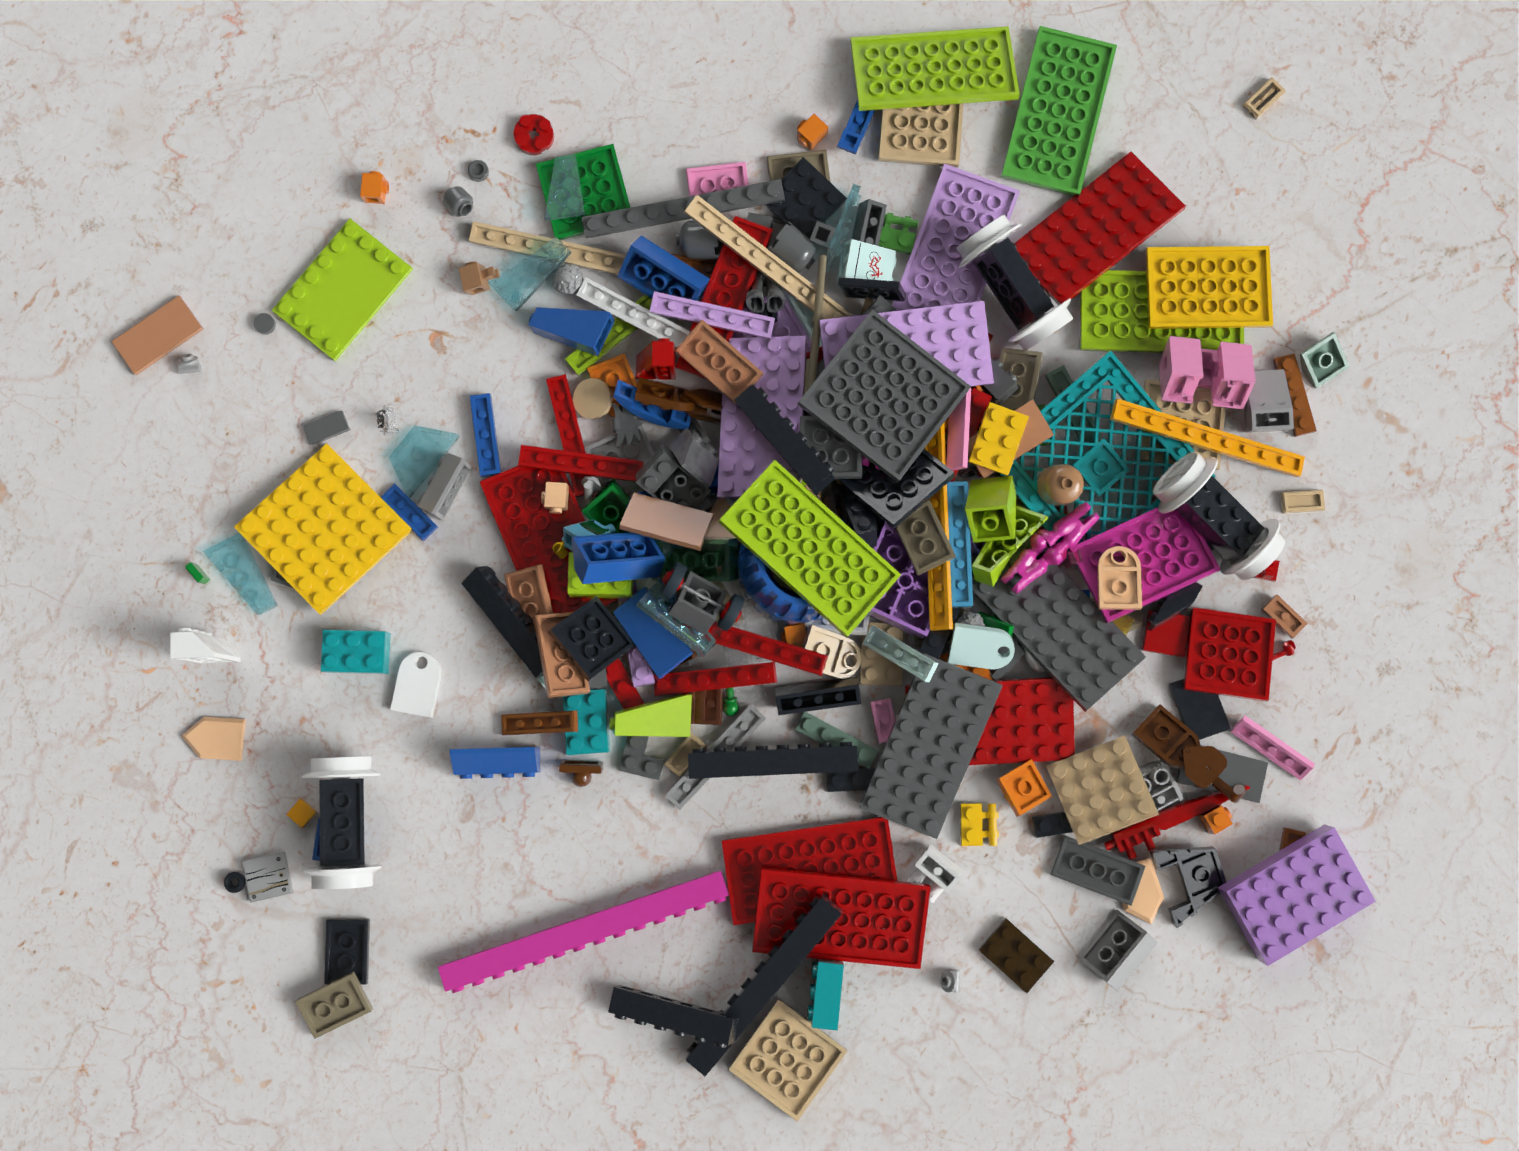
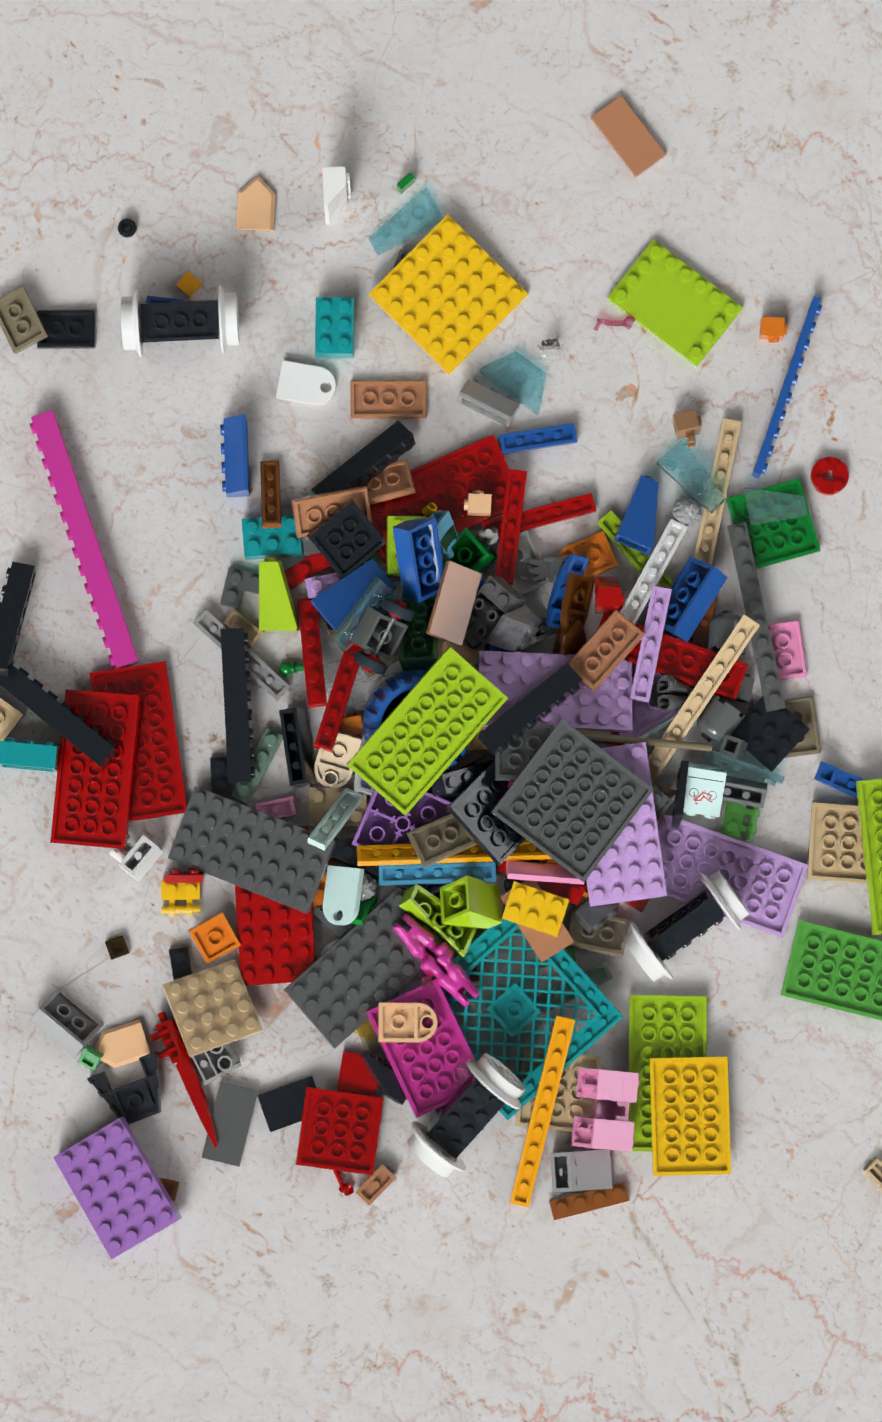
camera: 85 degrees right, 0 degrees up
(188, 364) = (601, 166): light grey plate -> none
(264, 323) = (640, 233): dark grey tile -> none
(267, 877) = (131, 256): light grey tile -> none
(326, 427) = (543, 293): dark grey tile -> none
(361, 358) = (614, 322): none -> clear pink piece
(409, 512) = (465, 370): blue tile -> none
(431, 172) = (785, 395): none -> blue plate
(437, 595) = (388, 399): none -> nougat tile
(458, 201) = (760, 407): dark grey head -> none
(478, 170) = (792, 425): dark grey tile -> none
(581, 770) = (228, 533): reddish brown tile -> none
(592, 398) = (573, 536): tan tile -> none
(707, 707) = (286, 646): copper plate -> none
(811, 131) = (837, 737): orange brick -> none
(950, 981) = (39, 870): light grey plate -> none
(957, 826) = (174, 875): none -> red plate
(1016, 955) = (62, 931): dark brown plate -> none
(1033, 894) = (117, 947): none -> dark brown tile
(1060, 484) = (494, 967): medium nougat cylinder -> none
(1098, 228) = (747, 1010): red plate -> none
(1098, 870) = (138, 1006): dark grey tile -> none
(1154, 924) = (90, 1058): none -> tile
(1166, 739) = (250, 1082): reddish brown plate -> none
(1216, 819) = (186, 1115): orange brick -> none
(1270, 572) = (420, 1170): red tile -> none
(1272, 747) = (252, 1170): bright pink plate -> none
(1302, 501) = (486, 1206): tan tile -> none
(1323, 360) = (622, 1228): sand green slope -> none

